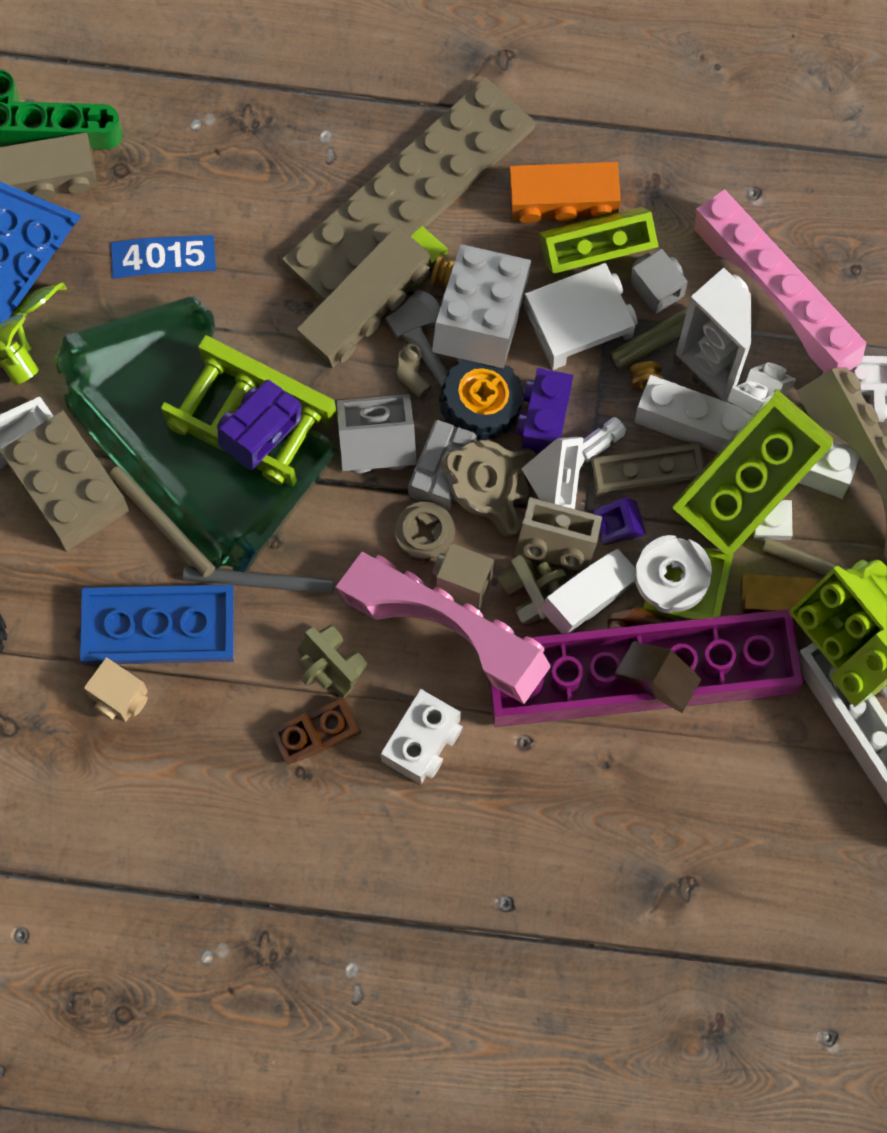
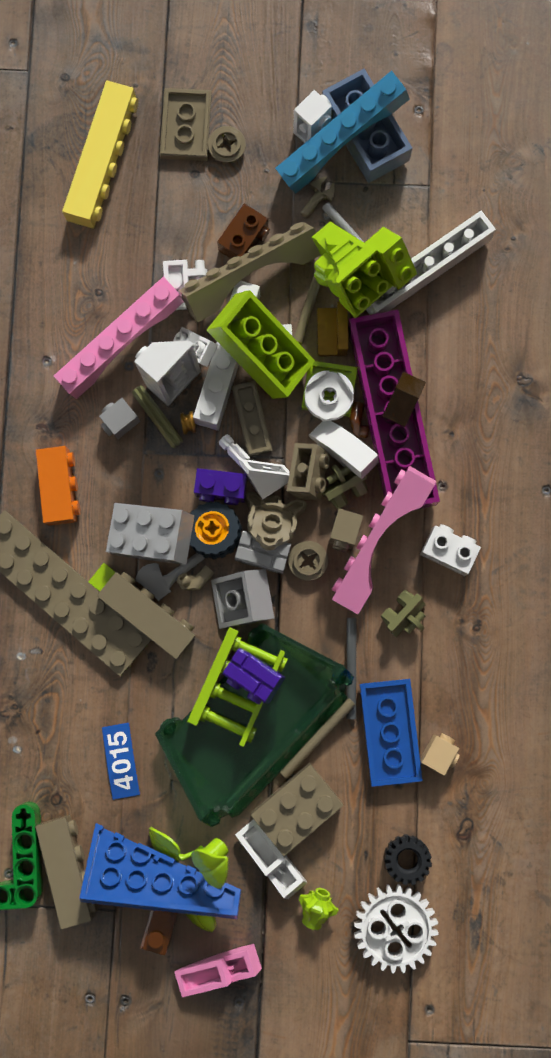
camera: 90 degrees left, 10 degrees up
(315, 731) = (451, 619): reddish brown slope -> none
(442, 271) = (122, 563): pearl gold bush -> none
(579, 313) = (148, 468): white panel -> none
(598, 239) = (93, 459): lime brick -> none
(620, 521) = (289, 434): dark purple slope -> none

